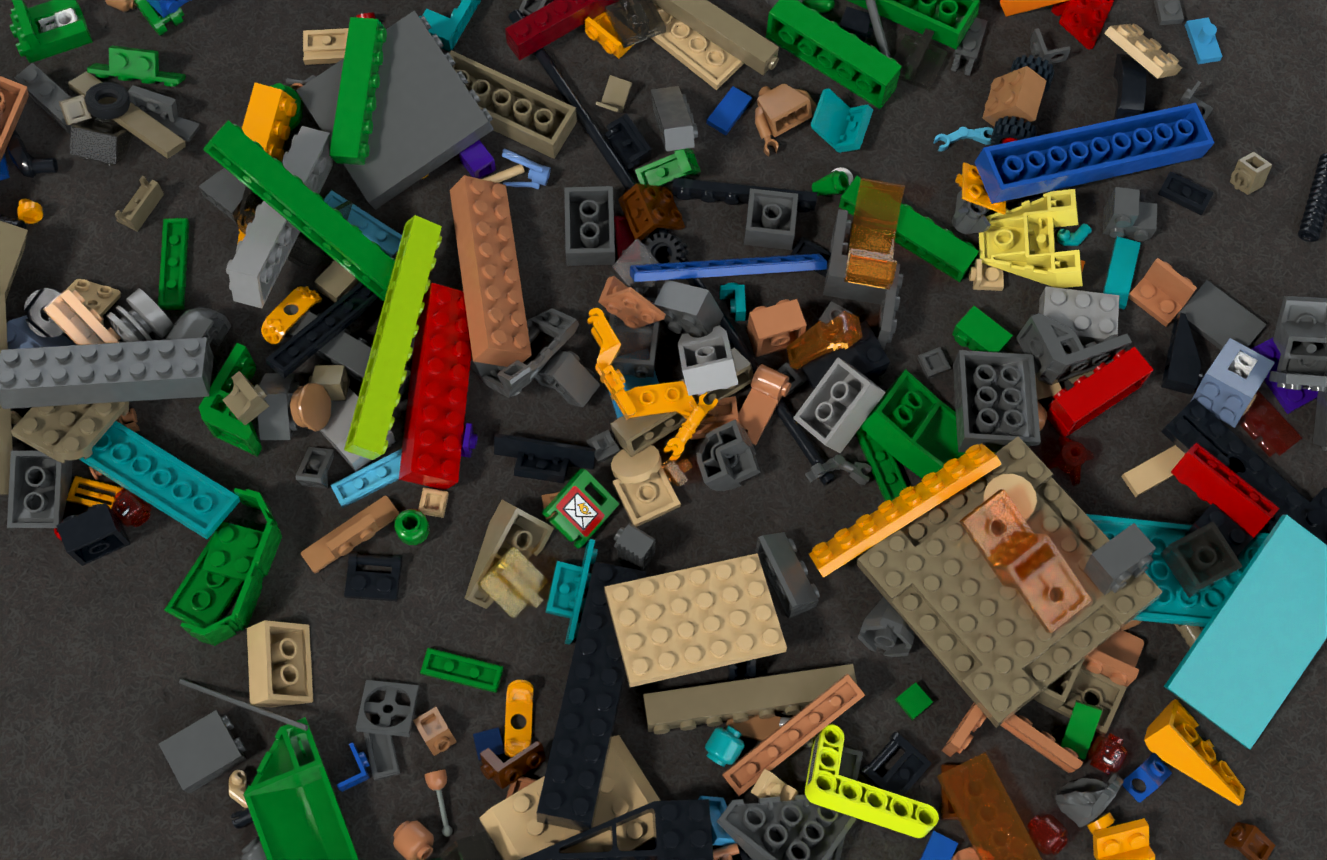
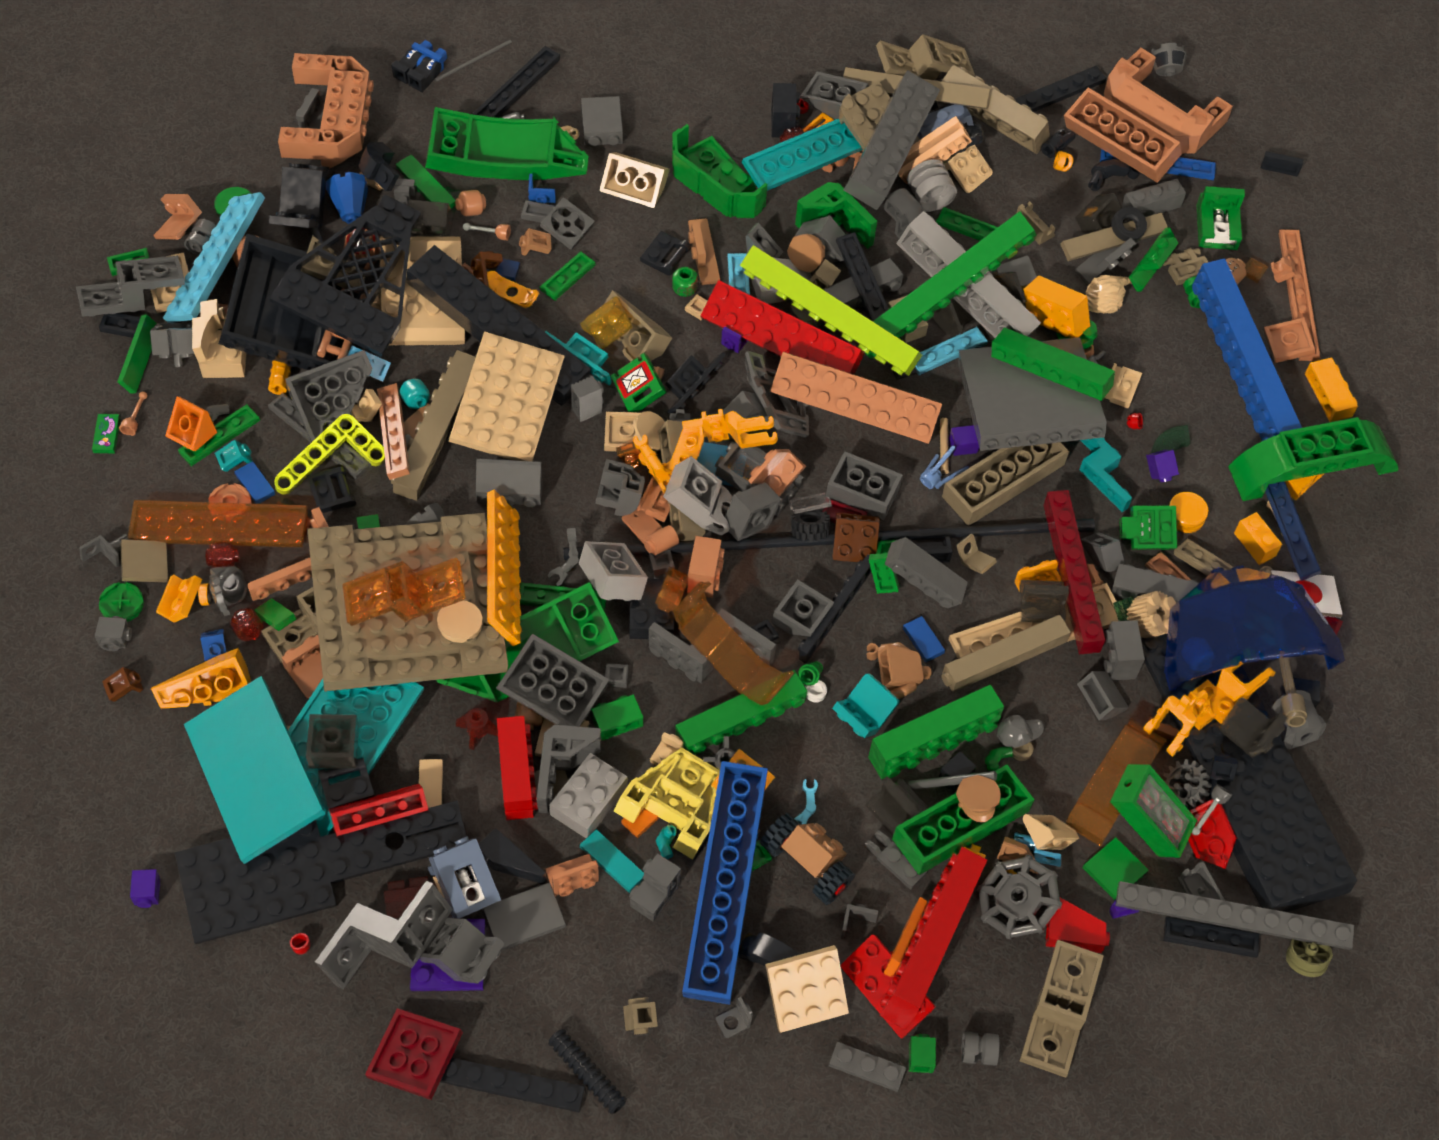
camera: 115 degrees right, 10 degrees down
(74, 109) = (1130, 199): dark tan tile -> none
(131, 31) = (1184, 270): none -> dark tan plate
(210, 98) = (1106, 293): none -> tan hair
(244, 704) = (617, 148): dark grey axle -> none
(245, 399) = (826, 203): dark tan brick -> none
(278, 322) = (899, 283): light orange piece -> none
(727, 267) = (772, 551): blue tile -> none
(736, 294) = (744, 560): teal bracket -> none
(1119, 560) = (360, 647): dark grey brick -> none
(1185, 193) = (654, 956): black plate -> none
(1203, 40) = (799, 1071): dark azure tile -> none

